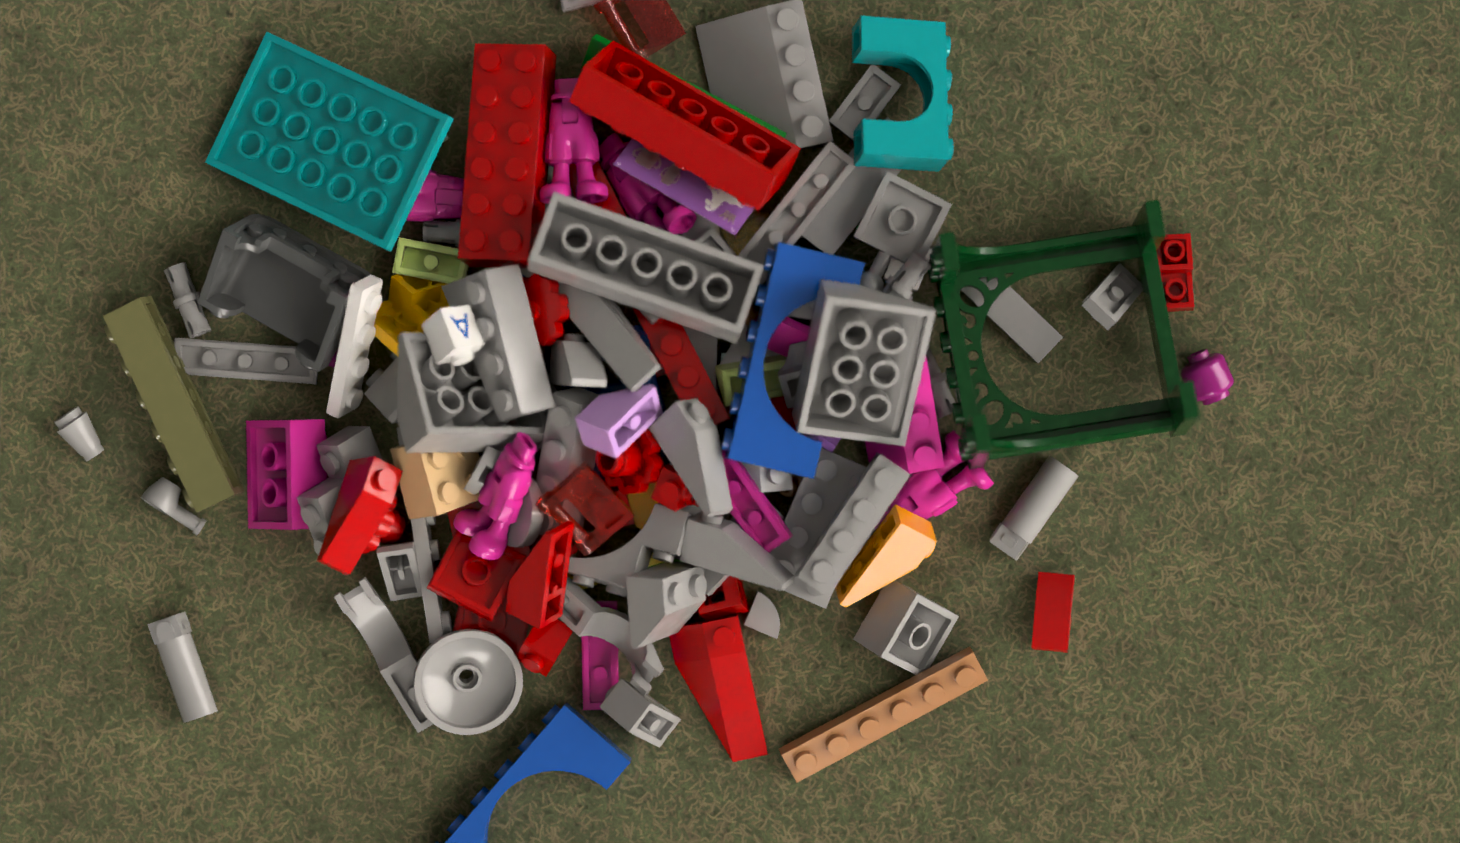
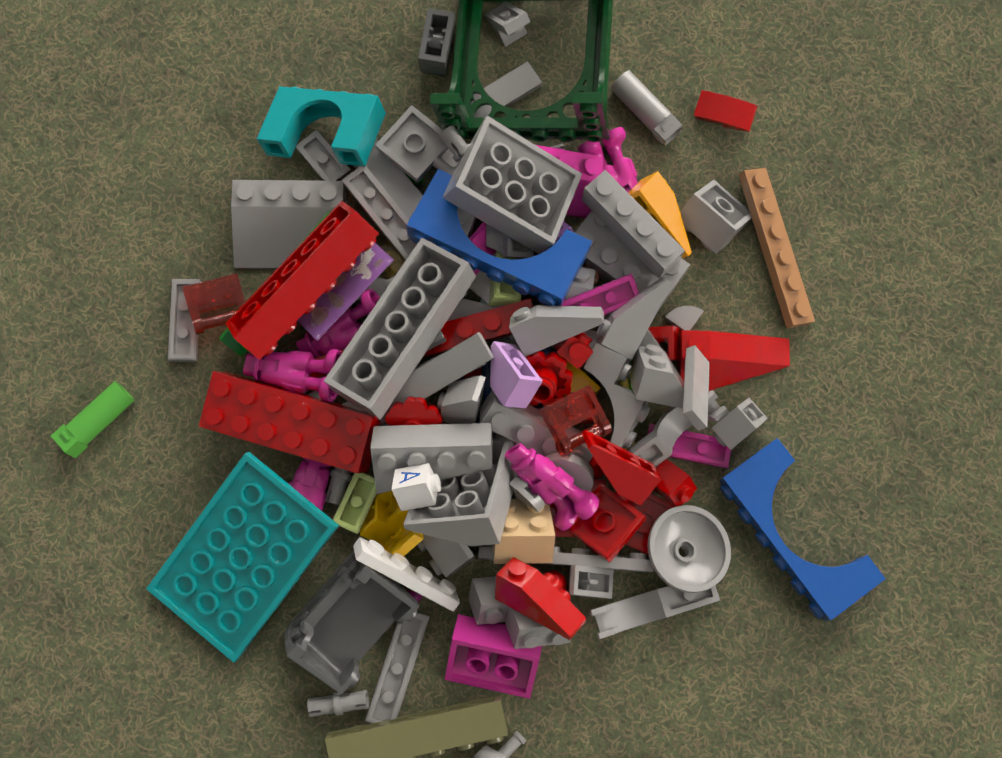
camera: 70 degrees left, 10 degrees down
(659, 648) = (696, 388): none -> light grey tile
(1057, 213) = (437, 42): none -> dark grey brick

